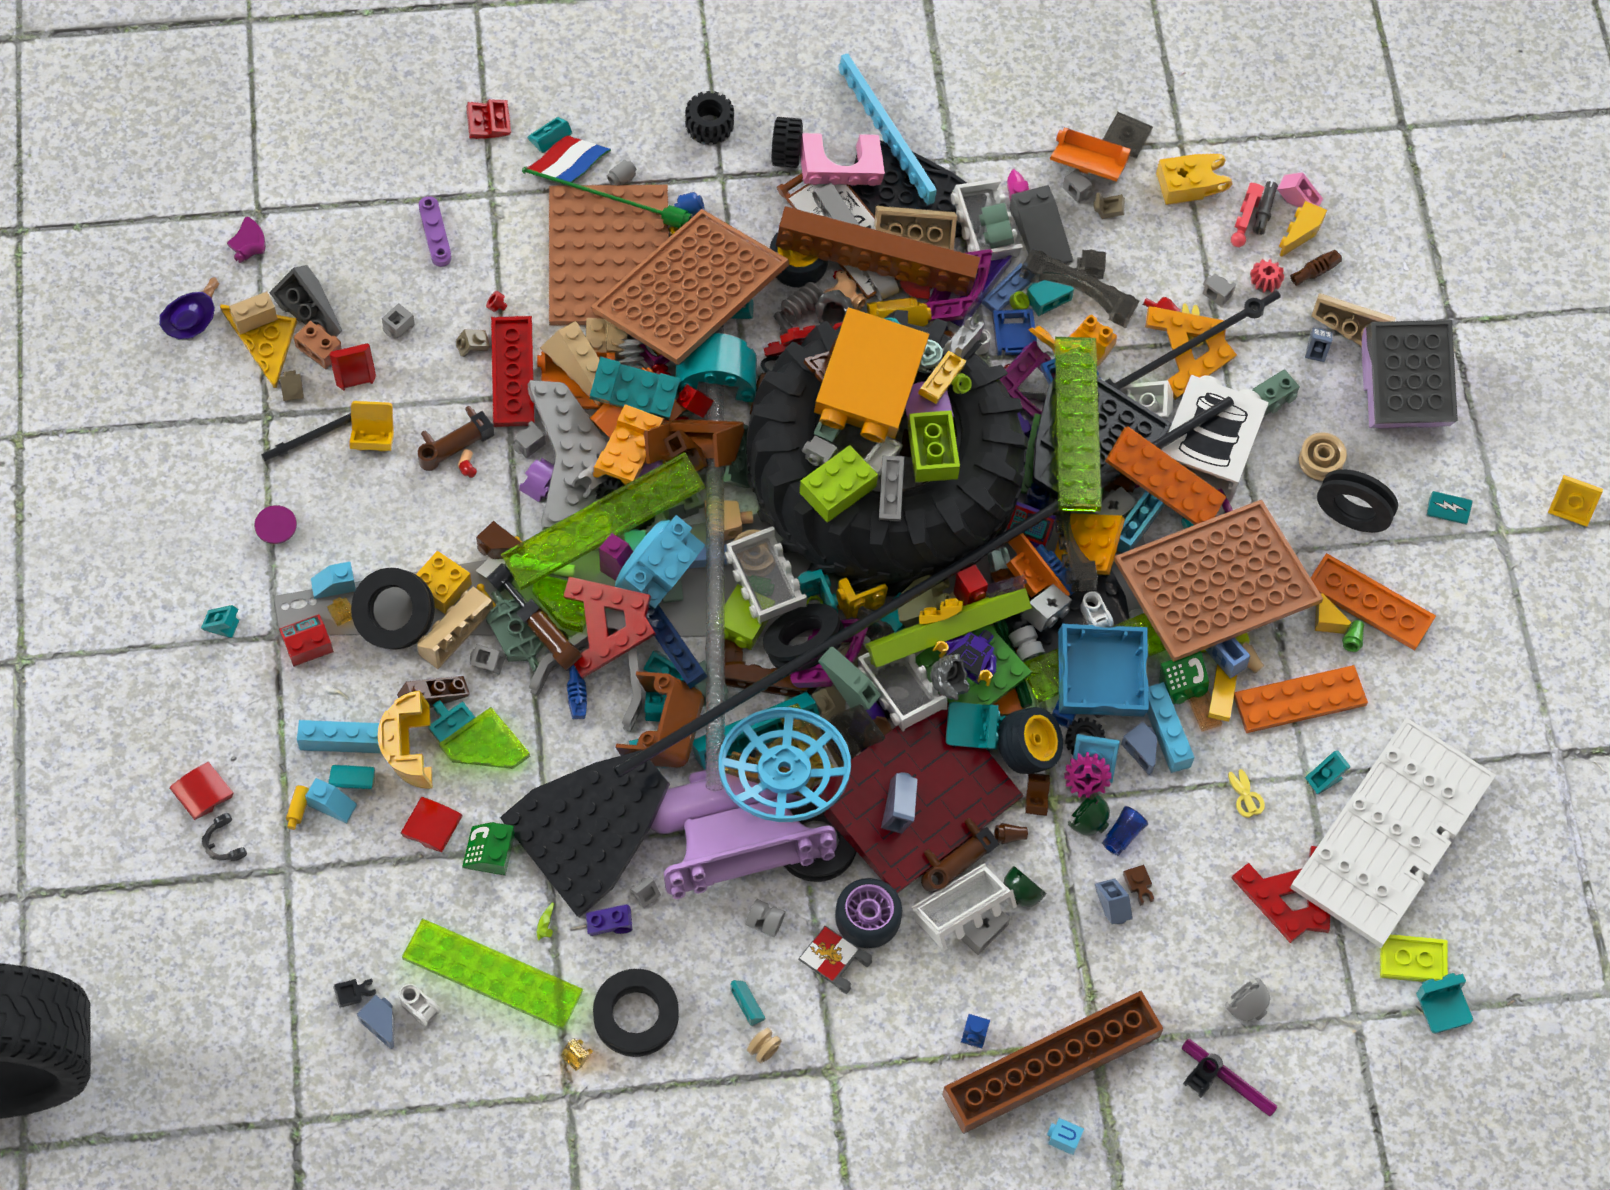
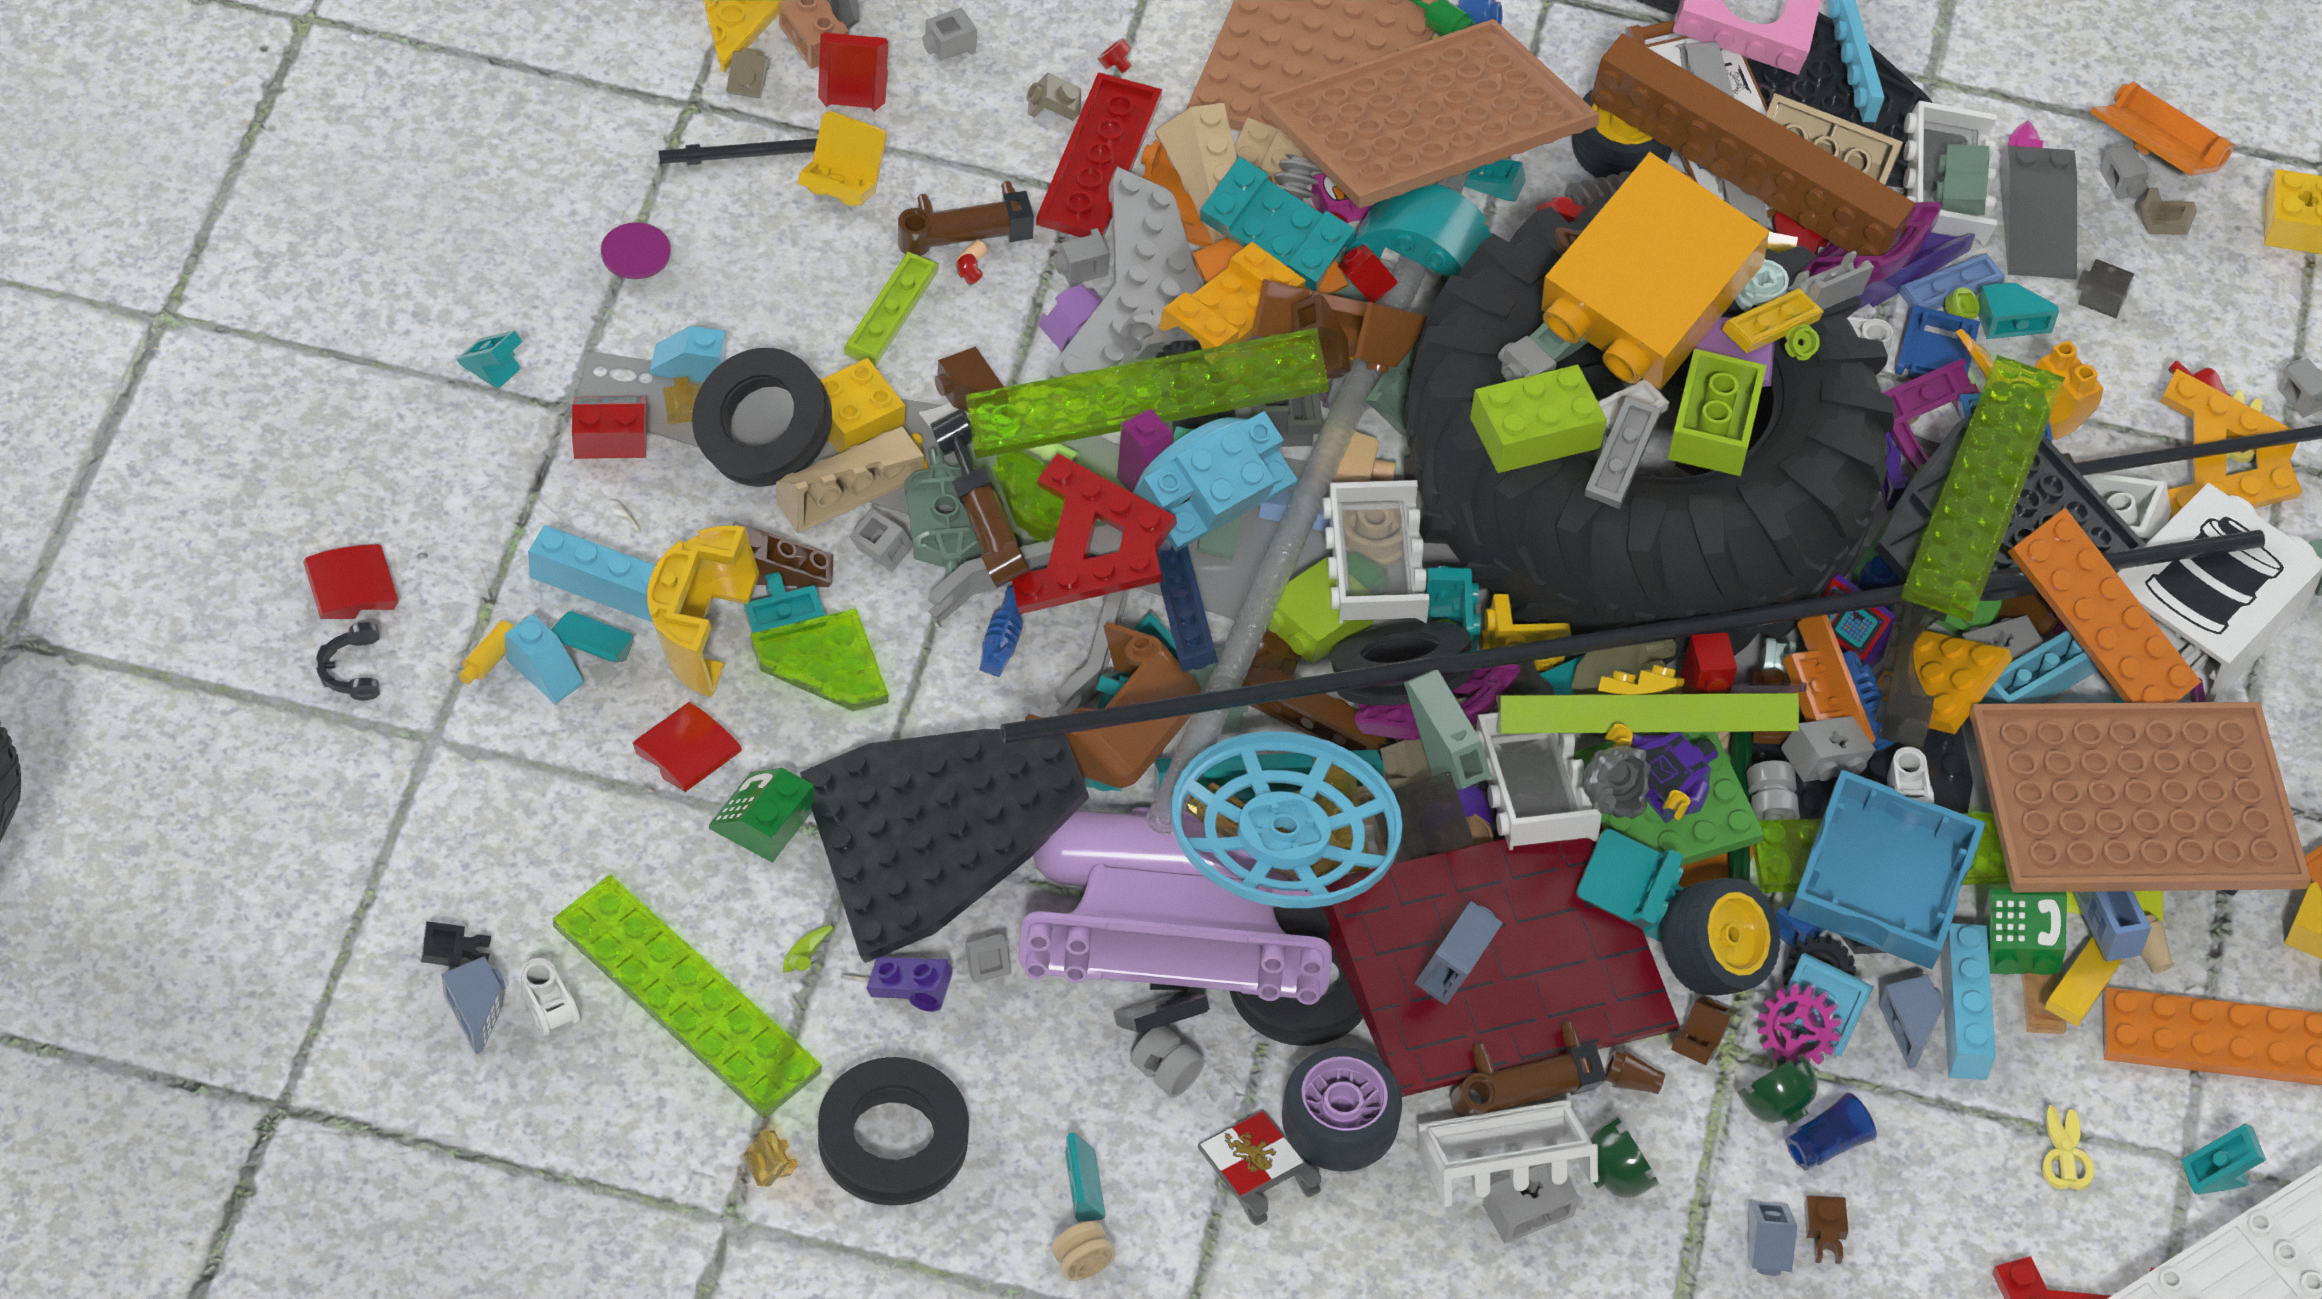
camera: 20 degrees right, 10 degrees down
(433, 509) = (891, 308): none -> lime tile
(752, 891) = (1161, 1011): none -> black tile
(1117, 304) = (2126, 357): clear smoke arch -> none
(1128, 133) = (2242, 124): clear smoke plate -> none

